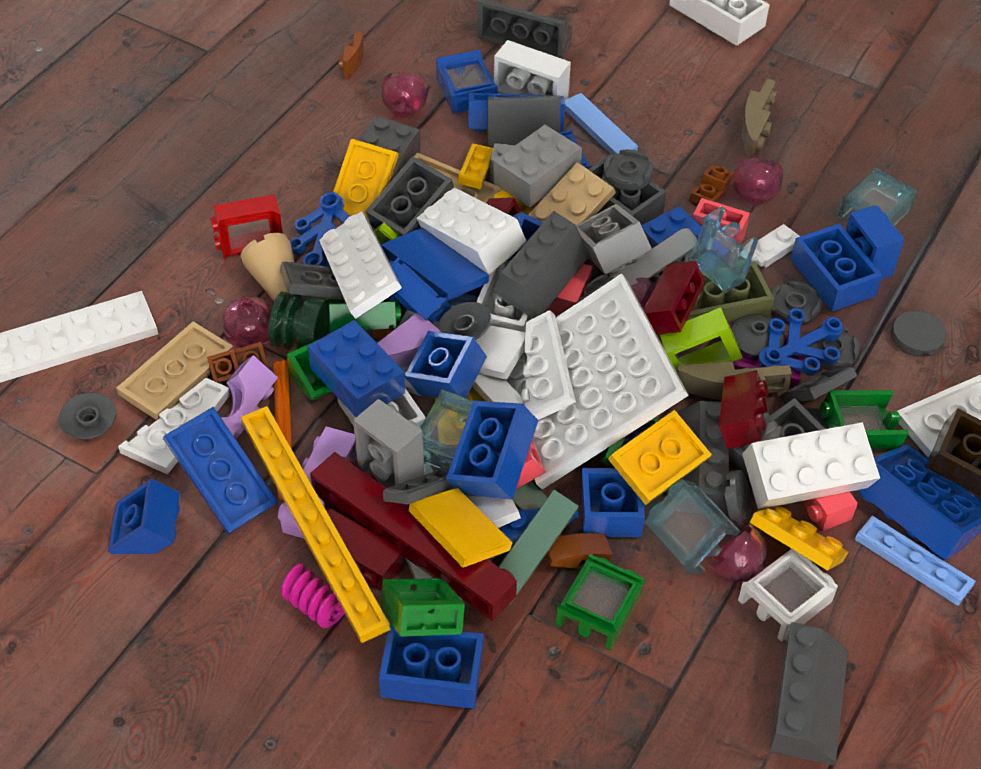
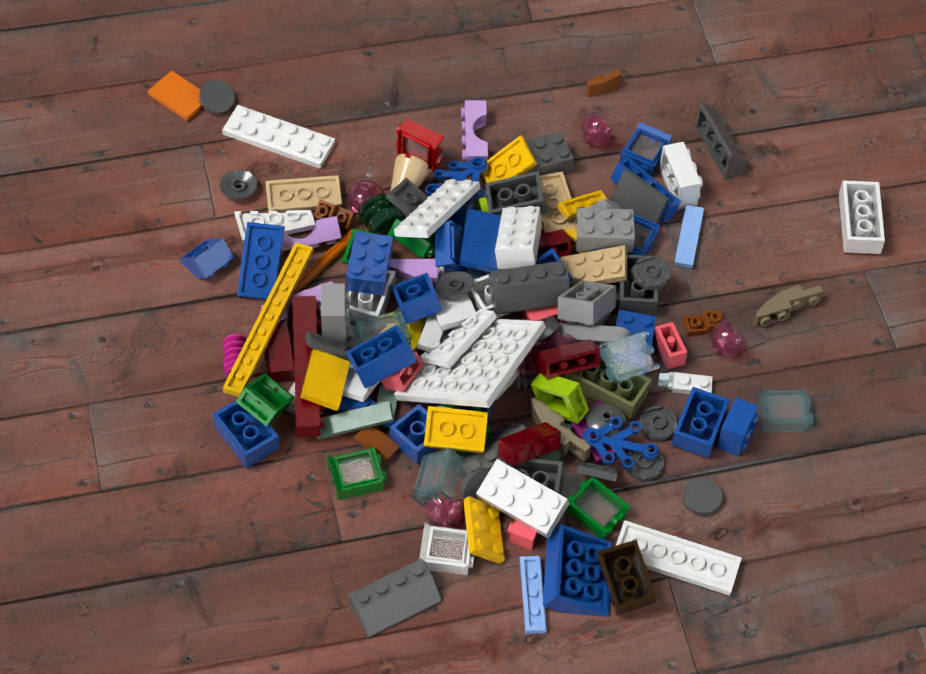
camera: 45 degrees right, 5 degrees up
(265, 167) = (474, 118): none -> lavender arch

